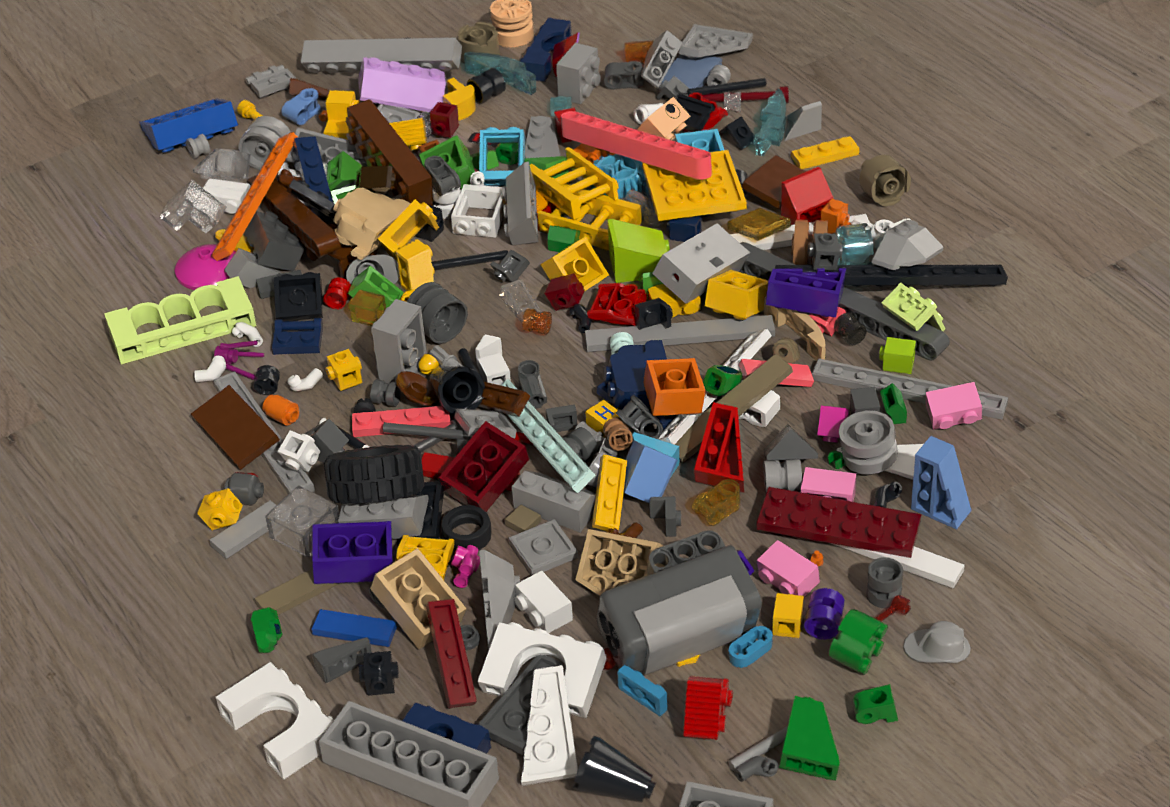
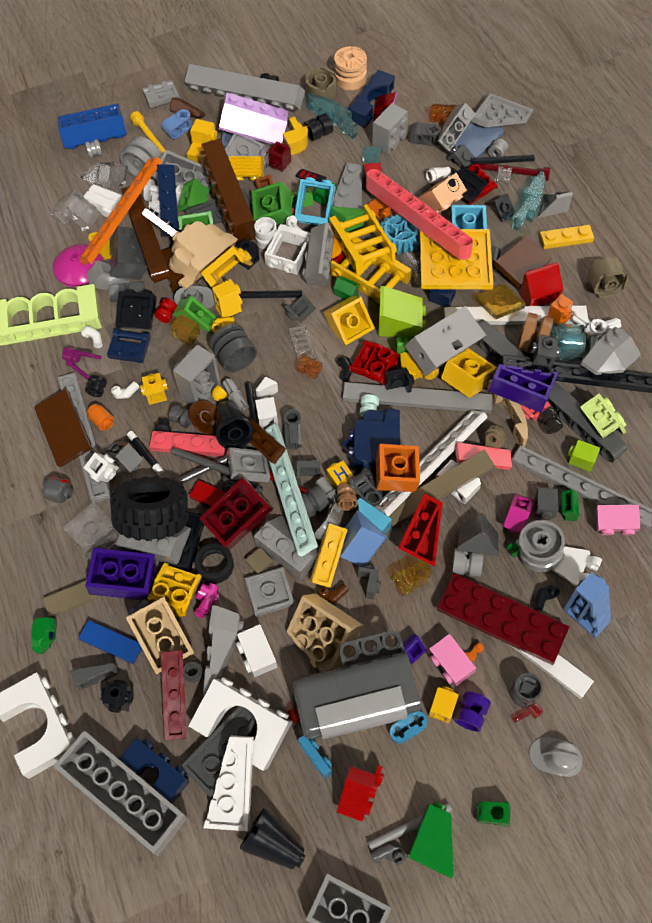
camera: 10 degrees right, 20 degrees up
(213, 372) = (58, 370): white arm -> none
(220, 509) = (33, 508): yellow brick -> none
(242, 532) = (49, 529): light grey tile -> none
(285, 177) = (147, 199): reddish brown arm -> none
(375, 178) = (210, 214): dark brown slope -> none
(442, 175) = (262, 219): dark grey piece -> none
(564, 291) = (336, 343): dark red brick -> none
(721, 379) = (438, 462): green rock -> none
(829, 483) = (502, 580): bright pink brick -> none
(858, 640) = (493, 749): green brick -> none

